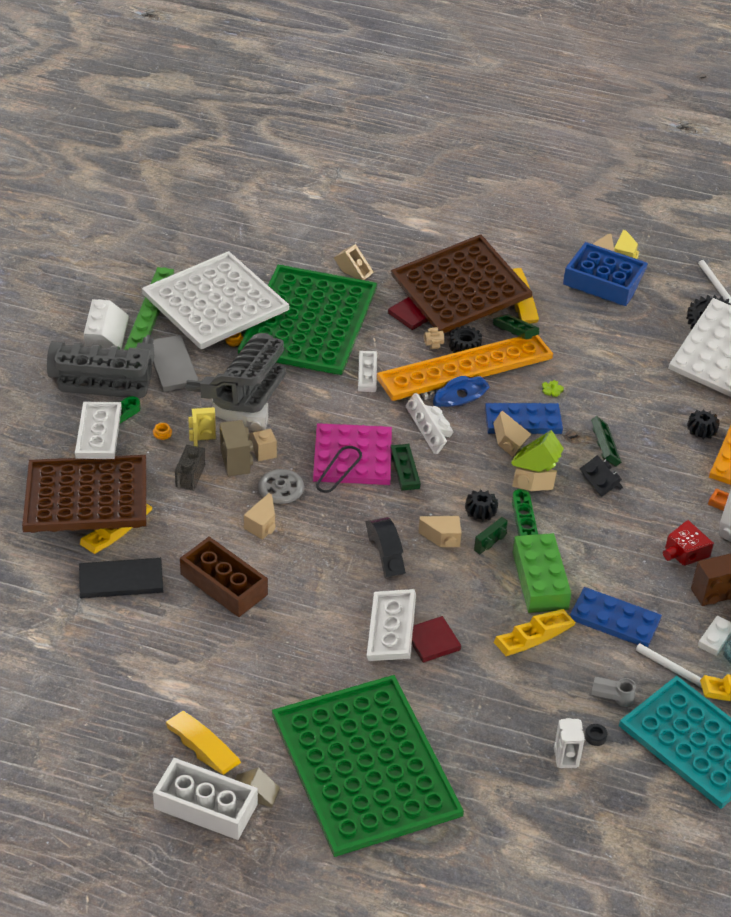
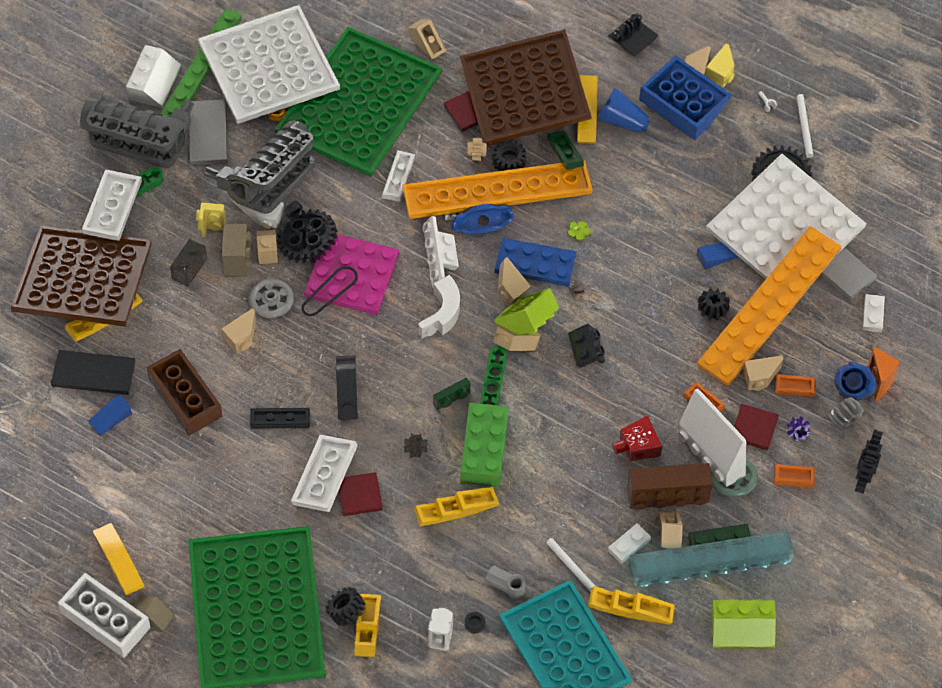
camera: 15 degrees right, 15 degrees up
(151, 611) = (110, 415): none -> blue slope
(162, 431) = (172, 210): light orange plate -> none
(277, 410) = (292, 208): none -> black tile
(313, 424) = (307, 235): none -> black gear
(326, 586) = (279, 418): none -> black tile
(405, 467) = (396, 299): dark green plate -> none
(441, 530) = (407, 379): tan slope -> none
(456, 457) = (449, 297): none -> white arch
(461, 741) = (345, 606): none -> black tyre
(473, 585) = (415, 445): none -> clear smoke gear
(481, 505) = (455, 357): black gear -> none
(489, 757) = (368, 627): none -> yellow slope
(536, 238) = (633, 35): none -> black hinge
(556, 292) = (623, 113): none -> blue cone
(605, 441) = (606, 306): dark green plate -> none
(615, 617) = (540, 505): blue plate -> none
(680, 270) = (771, 102): none -> white hand
(684, 388) = (714, 255): none -> blue slope

